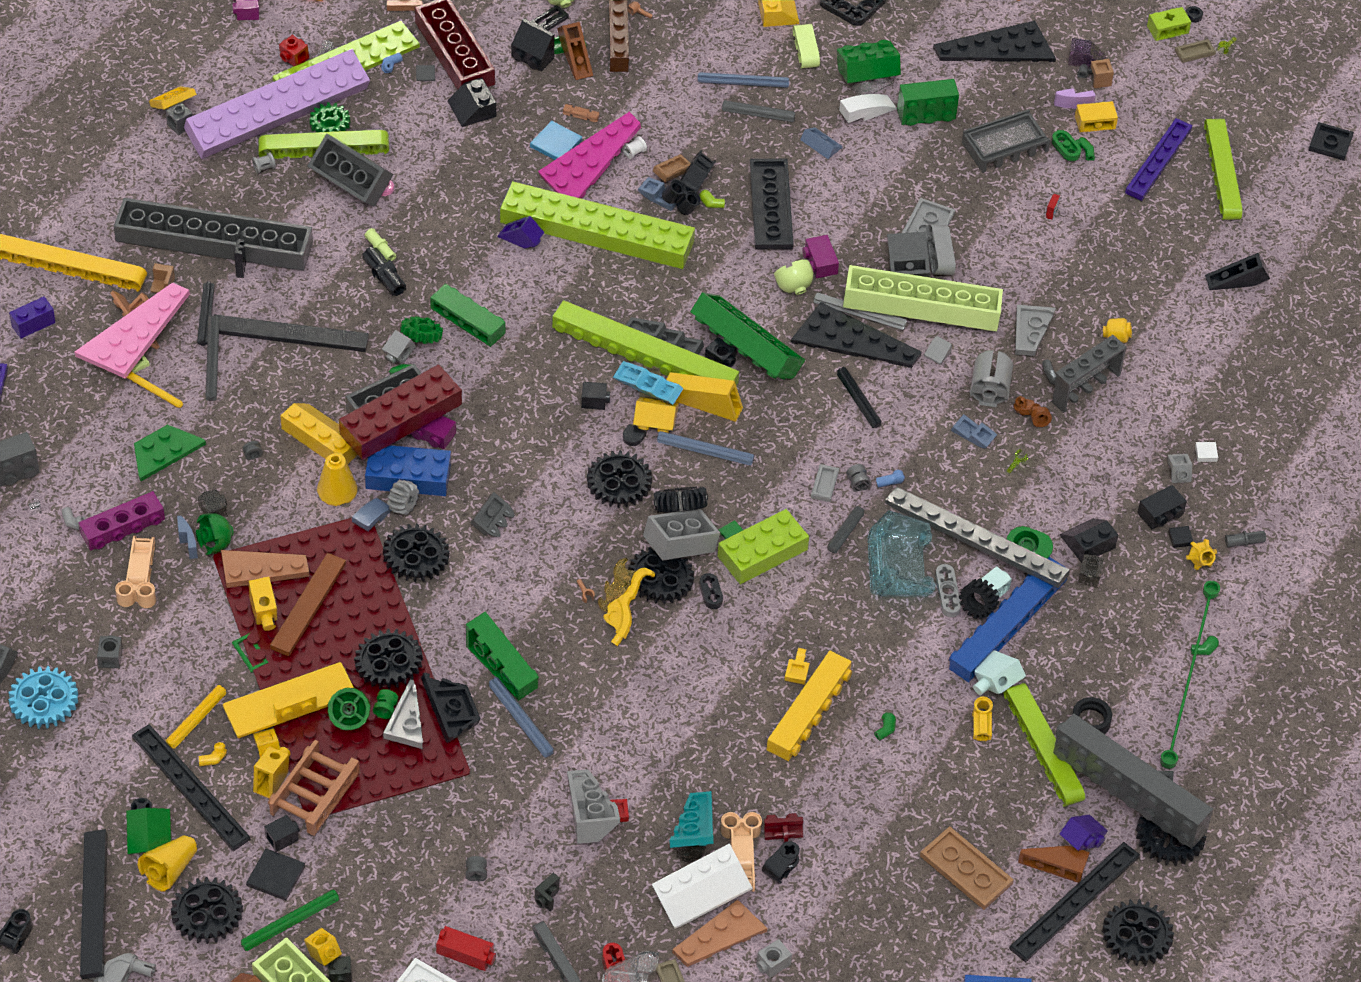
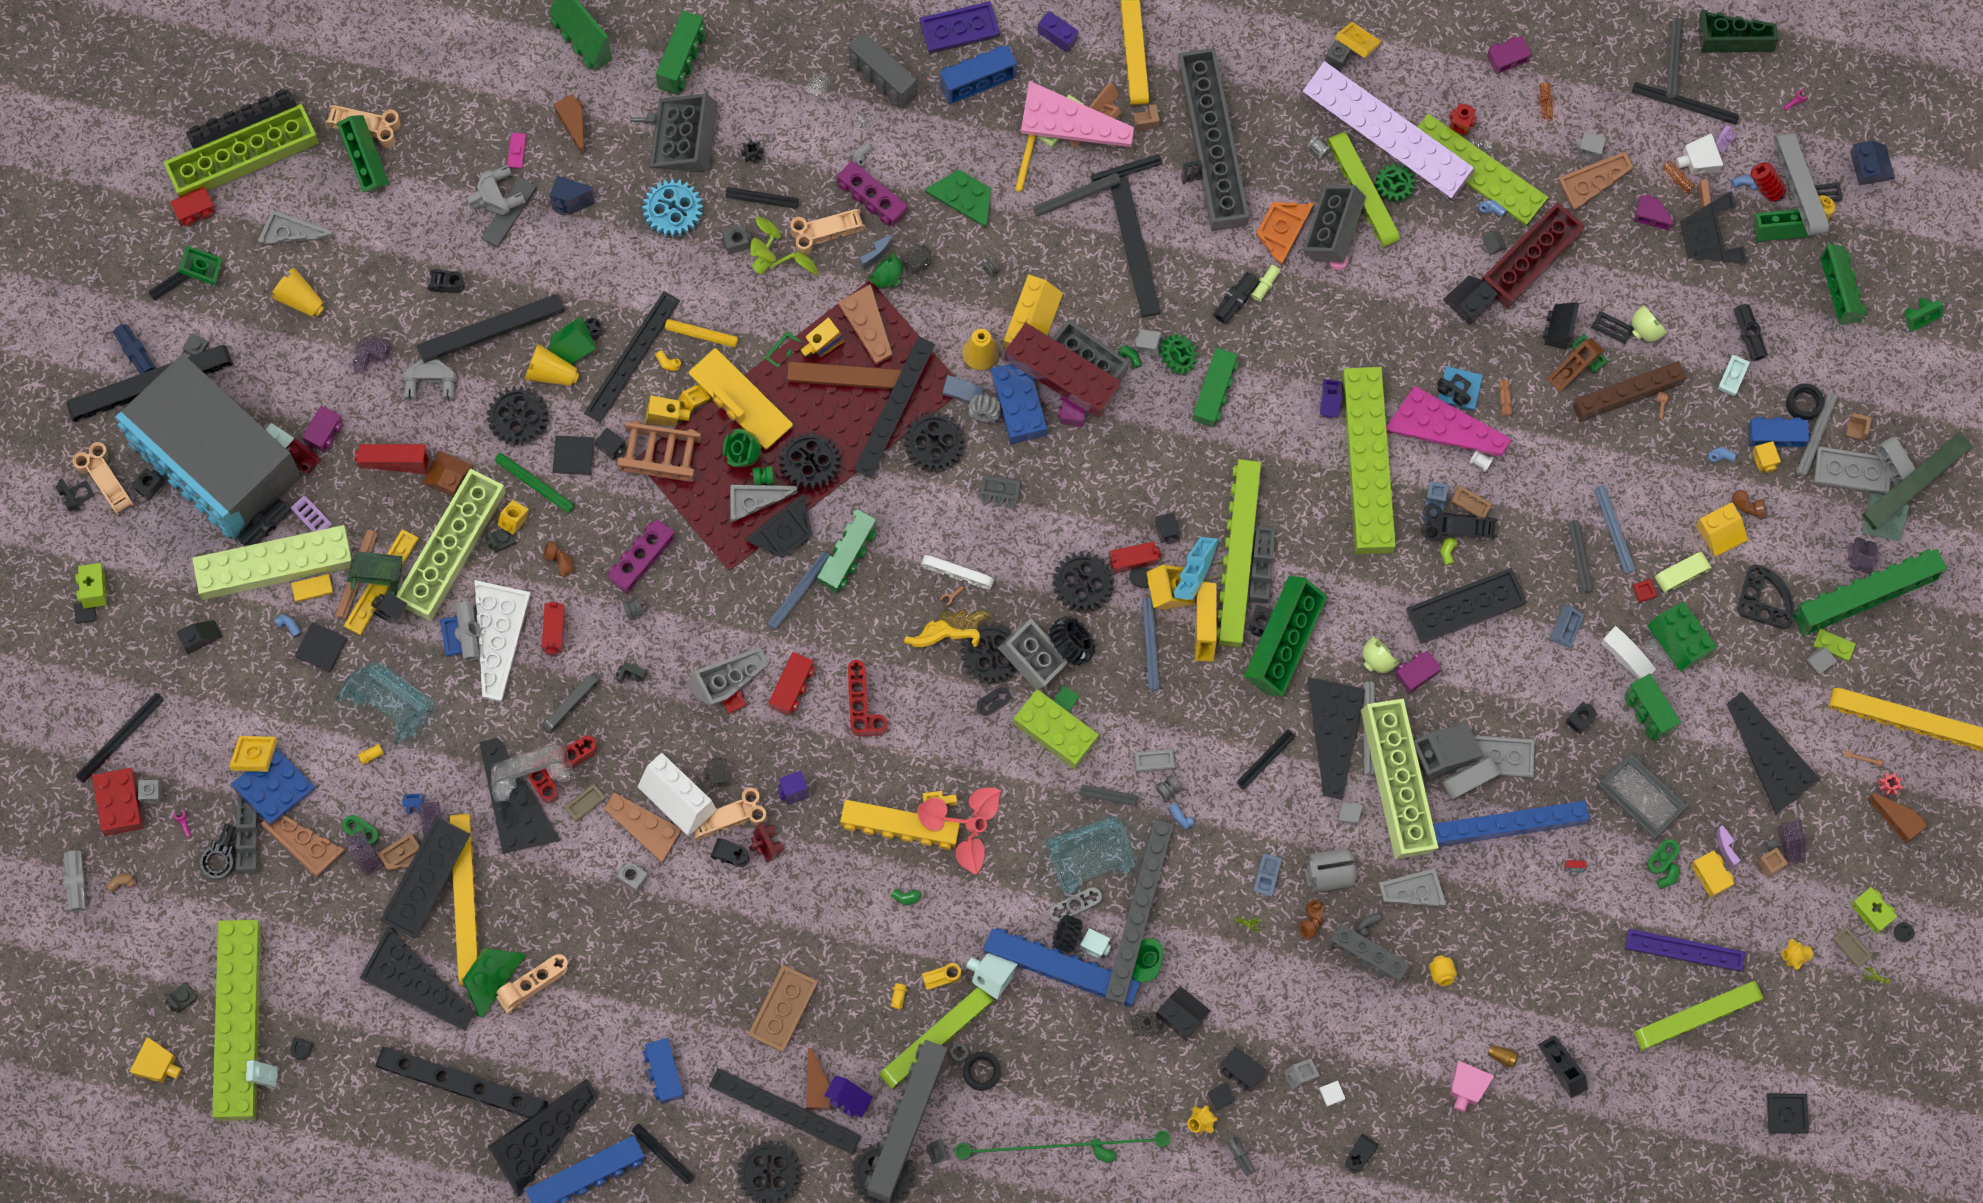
camera: 70 degrees right, 20 degrees up
(18, 607) = (753, 156): none -> black gear
(43, 390) = (978, 74): none -> blue brick
(73, 618) = (760, 197): none -> black axle
(147, 632) = (767, 257): none -> lime plant
(330, 215) = (1282, 227): none -> orange wing
(365, 570) = (894, 407): none -> black plate
(378, 924) = (565, 563): none -> dark orange arm
(409, 817) = (627, 581): none -> magenta brick
(558, 140) = (1448, 388): none -> black bracket
(563, 576) = (957, 572): none -> white beam
(612, 429) = (1134, 556): none -> red brick
(621, 752) = (792, 684): none -> red brick
(639, 693) = (860, 698): none -> red beam
(695, 823) = (735, 768): teal wing -> none
(737, 779) = (792, 788): none -> dark purple brick
(810, 79) = (1644, 591): none -> red tile
(842, 631) = (985, 805): none -> coral plant
(914, 157) = (1577, 724): none -> black brick
(988, 764) = (898, 996): none -> yellow pin
(996, 231) = (1511, 823): none -> blue brick
(1190, 85) = (1796, 954): none -> yellow rock
(1214, 313) = (1504, 1056): none -> pearl gold cone
(1233, 347) = (1468, 1085): none -> bright pink torso
(1273, 446) = (1362, 1151): none -> black piece

